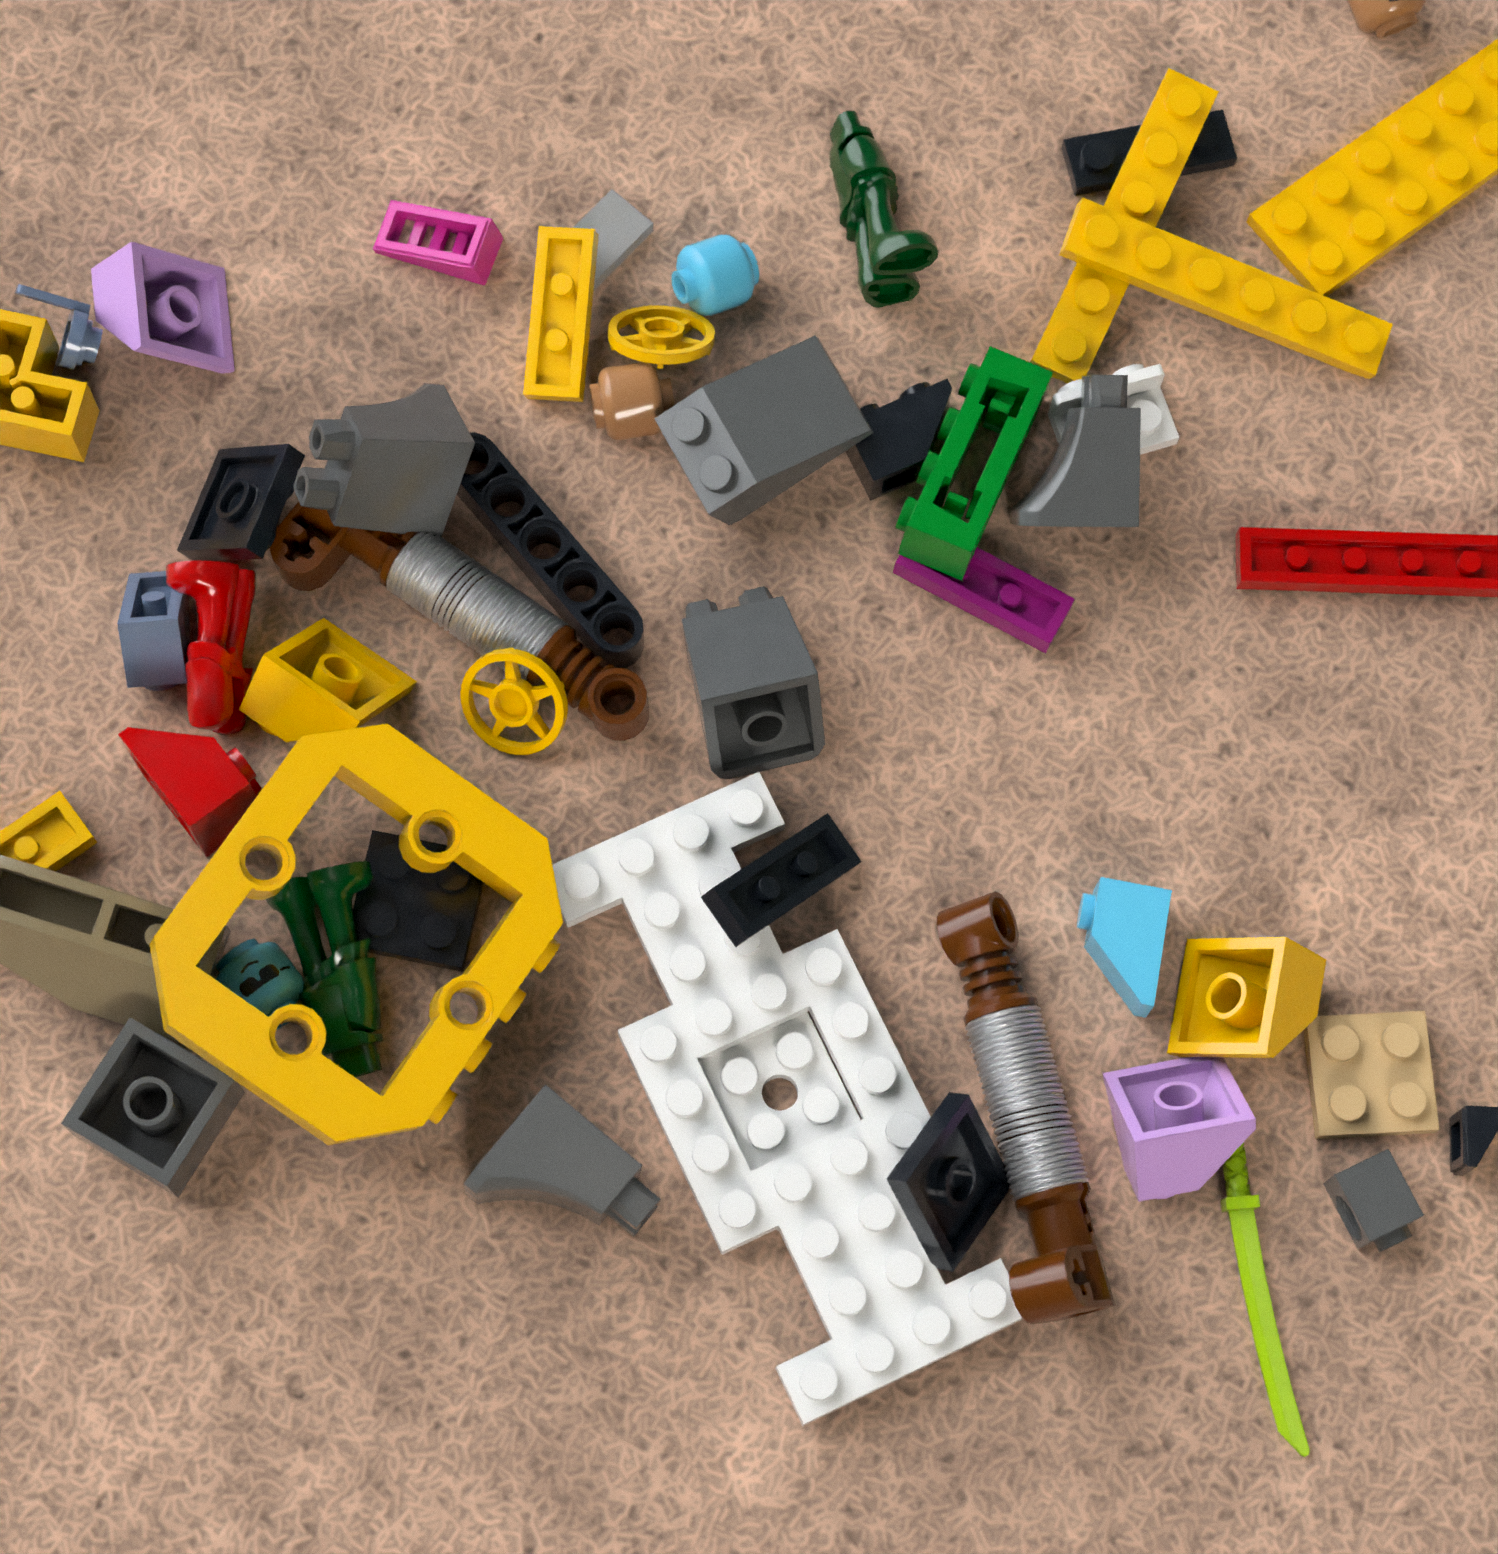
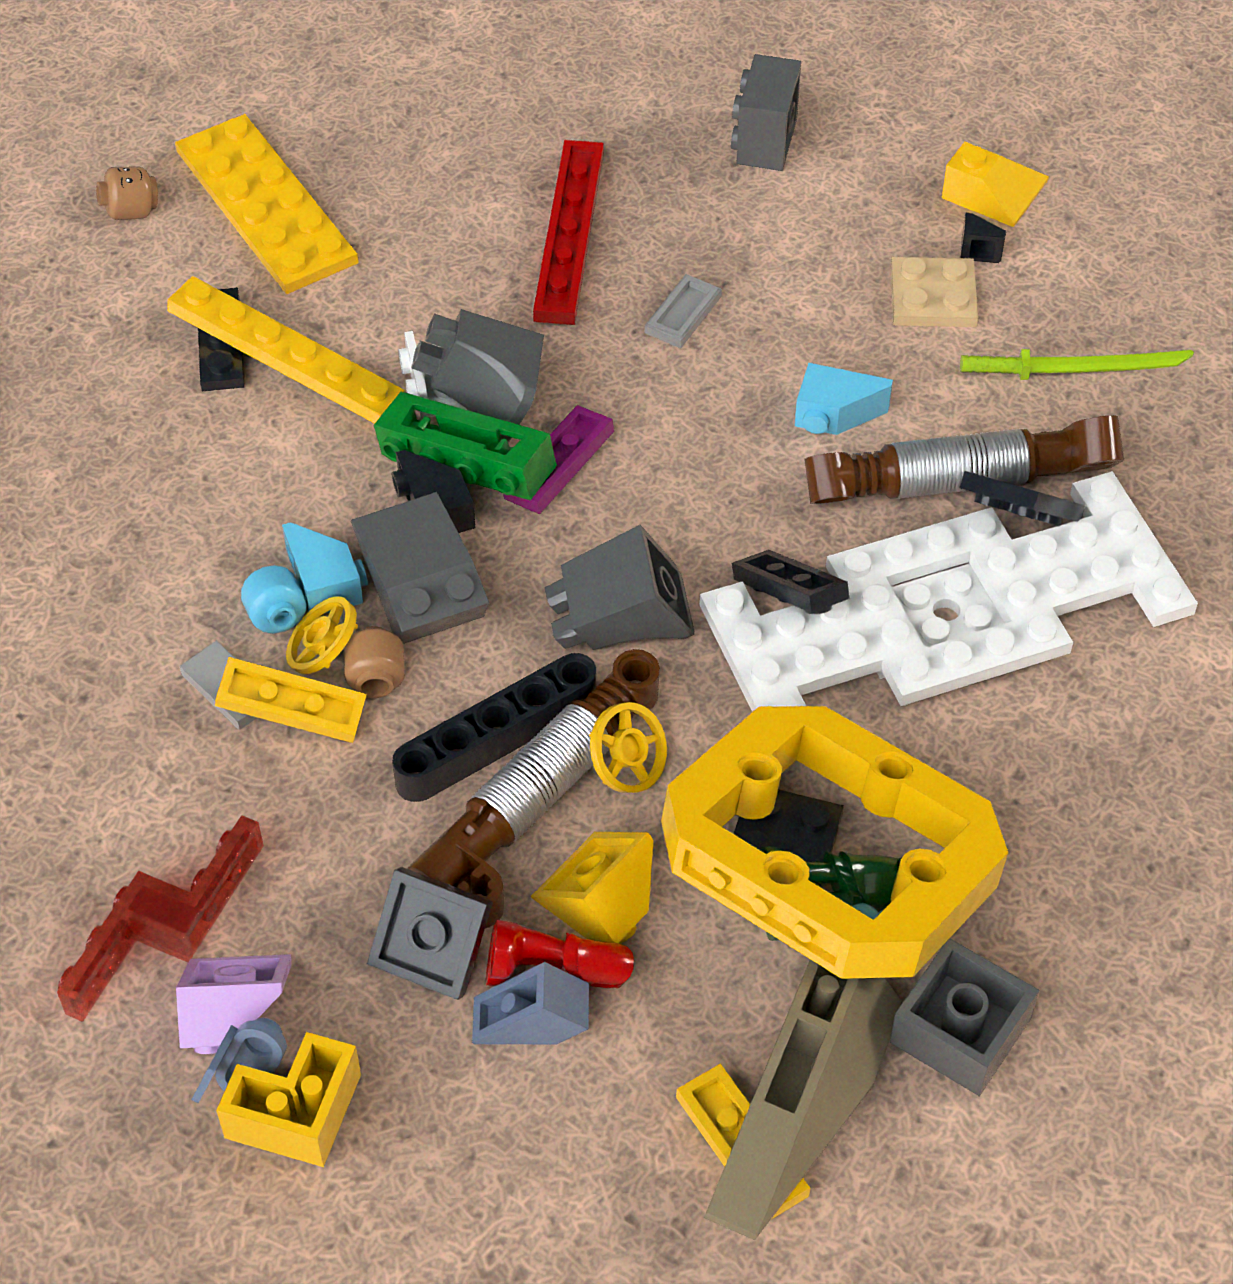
camera: 80 degrees left, 20 degrees down
(195, 781) = (690, 969): red slope -> none
(261, 225) = (159, 917): none -> clear red bracket
(389, 464) = (419, 790): dark grey hips -> none
(472, 251) = (198, 757): dark pink slope -> none
(565, 1162) = (1003, 734): dark grey hips -> none
(764, 316) = (323, 566): none -> medium azure slope
(867, 209) = (225, 494): dark green piece -> none
(1176, 1123) = (970, 385): lavender slope -> none
(1225, 289) = (346, 297): yellow plate -> none
(1244, 997) = (886, 341): yellow slope -> none
(1283, 729) = (683, 311): none -> light grey tile
(1374, 1201) = (1023, 292): dark grey brick -> none

